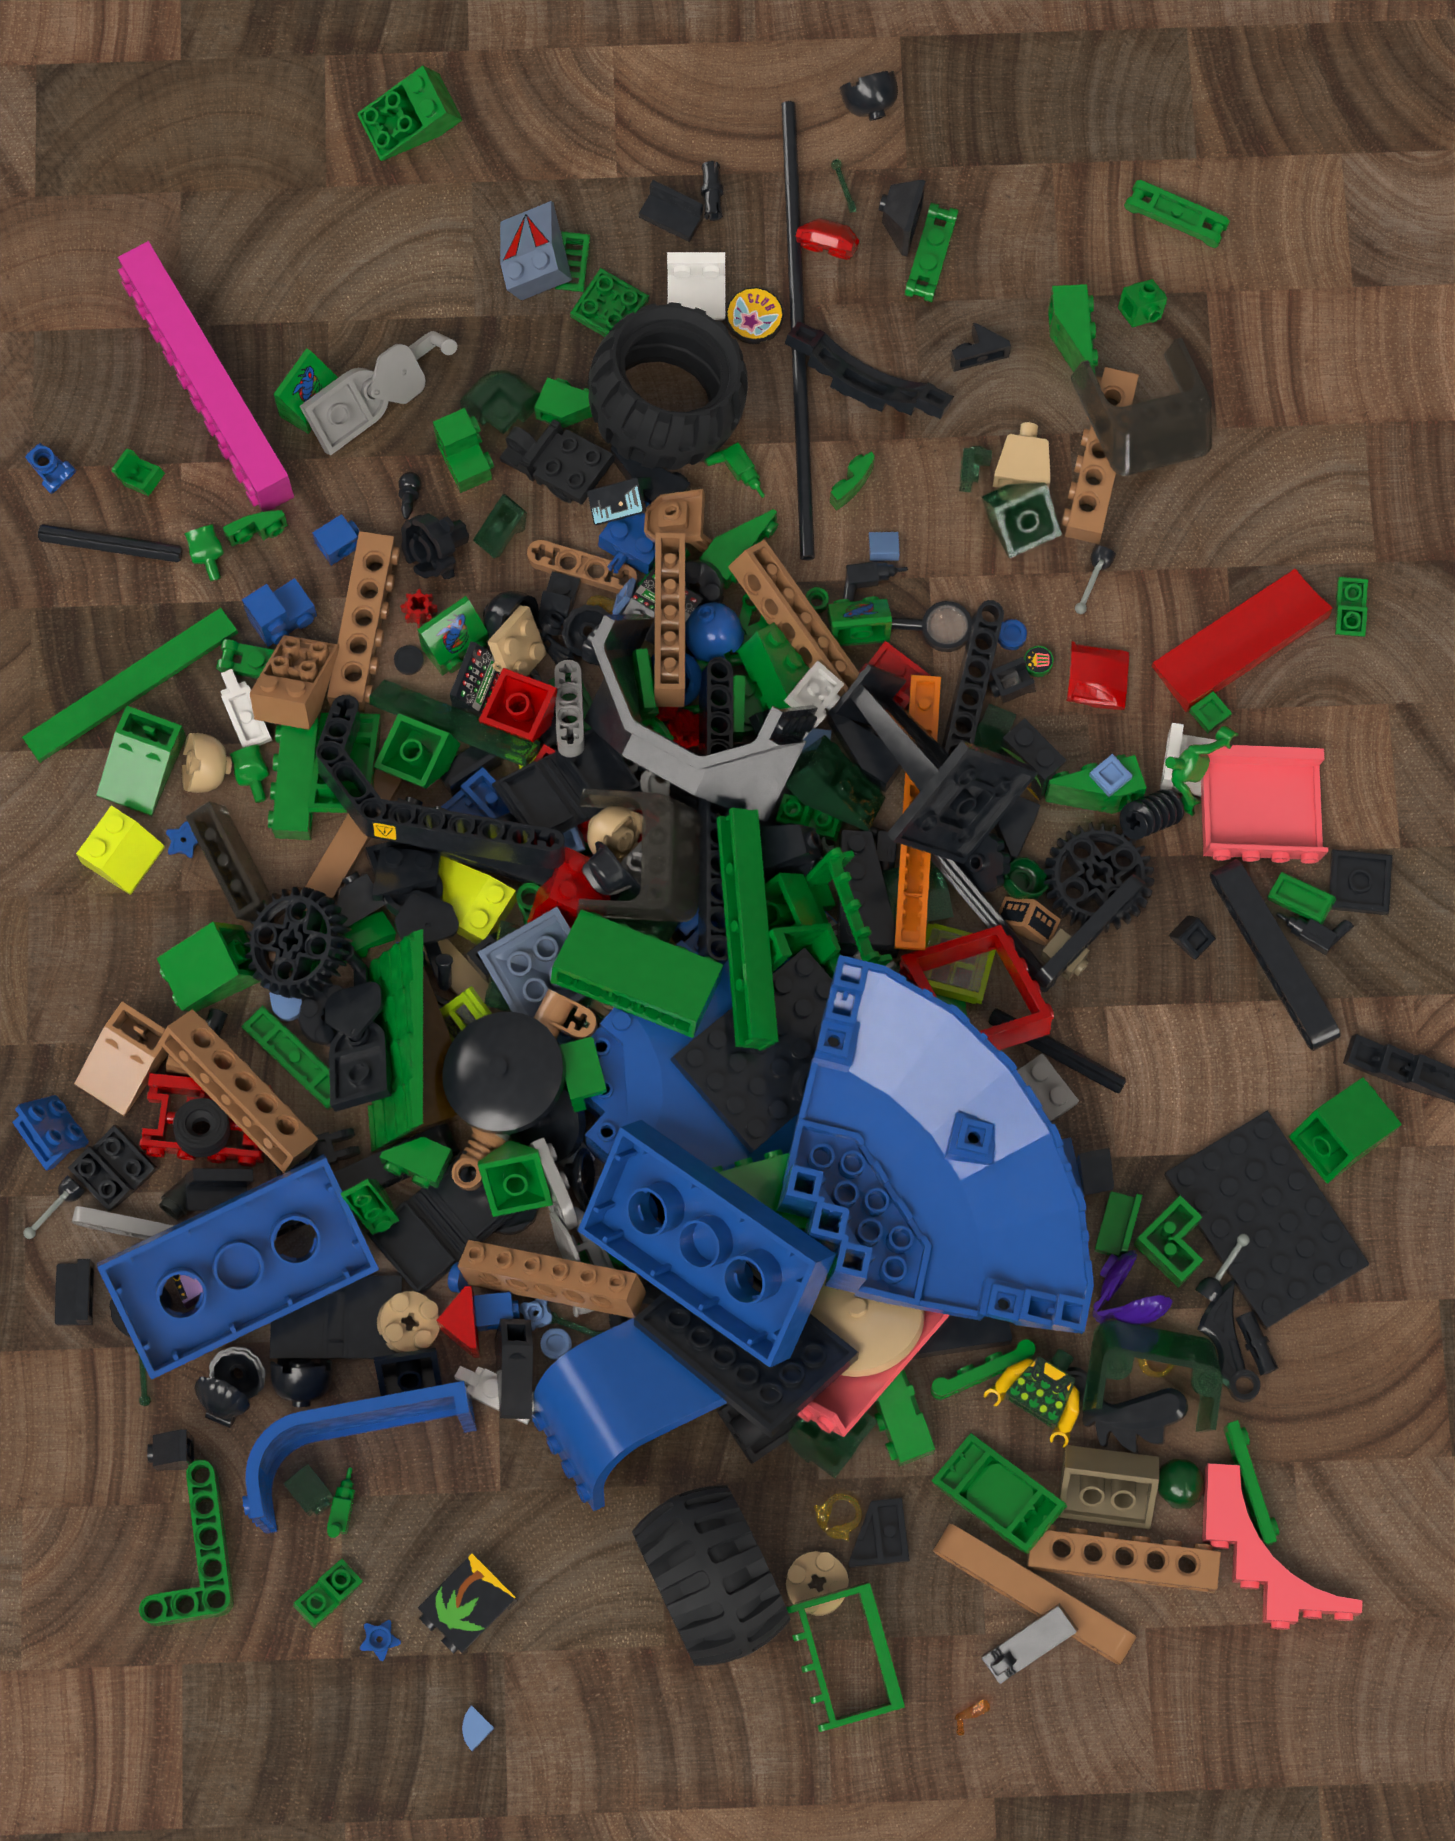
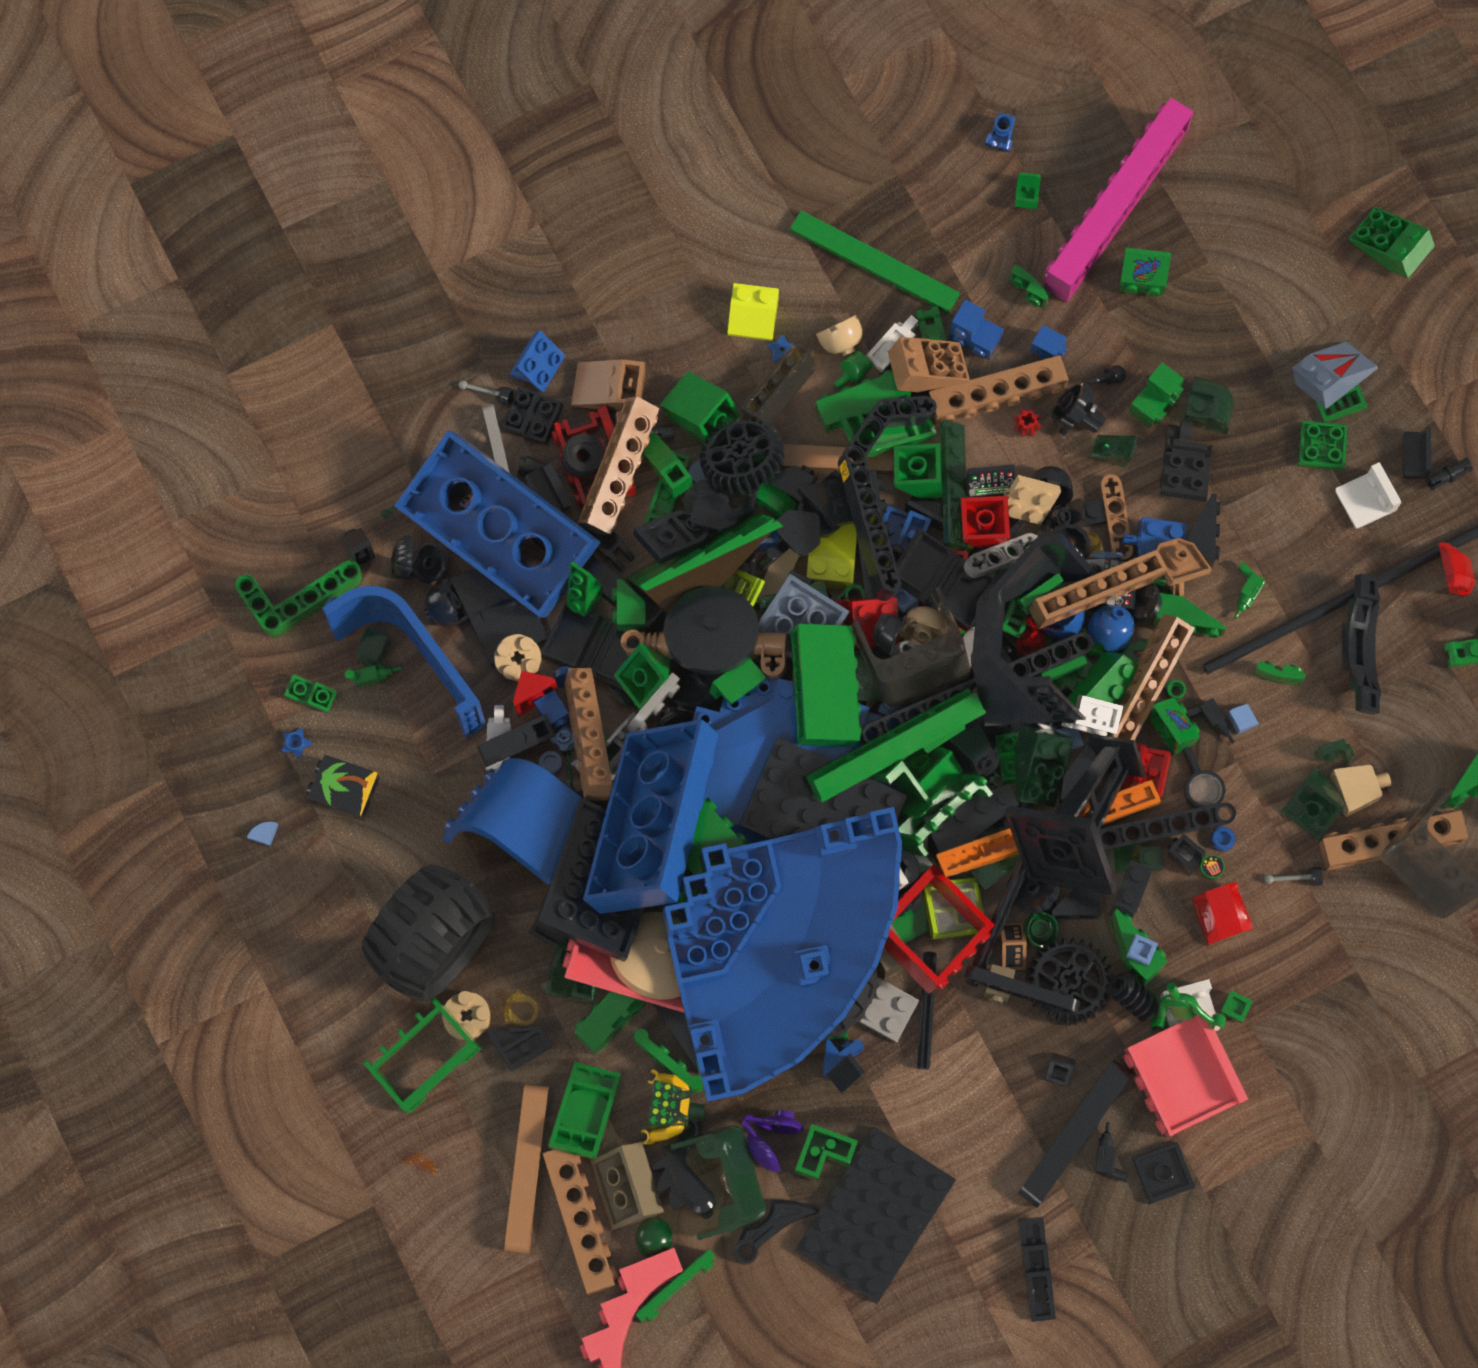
camera: 65 degrees right, 0 degrees up
(74, 1293) = (429, 435): black panel -> none
(110, 543) = (968, 199): black axle -> none
(140, 760) = (822, 293): slope -> none
(205, 549) = (996, 262): green piece -> none
(266, 1035) = (667, 466): none -> green slope
(344, 406) = (1145, 304): light grey plate -> none
(408, 660) = (987, 435): black piece -> none
(408, 1371) = (481, 675): black slope -> none
(449, 635) = (1017, 449): green slope -> none
(562, 403) = (1229, 449): green slope -> none
(619, 500) = (1174, 517): panel -> none
(678, 338) = (1306, 480): black tyre -> none
(754, 315) = (1370, 548): tile -> none
(987, 348) = (1432, 722): black slope -> none
(1029, 1643) = (489, 1179): hinge -> none
(1117, 1224) = (820, 1109): green panel -> none
(1211, 1286) = (805, 1196): hinge -> none
(1241, 639) = (1305, 1005): red arch -> none
(1257, 1343) = (780, 1247): black pin -> none
(1301, 898) = (1128, 1135): green tile -> none
(1344, 1130) = (968, 1241): green slope -> none
(1351, 607) = (1372, 1074): green slope -> none

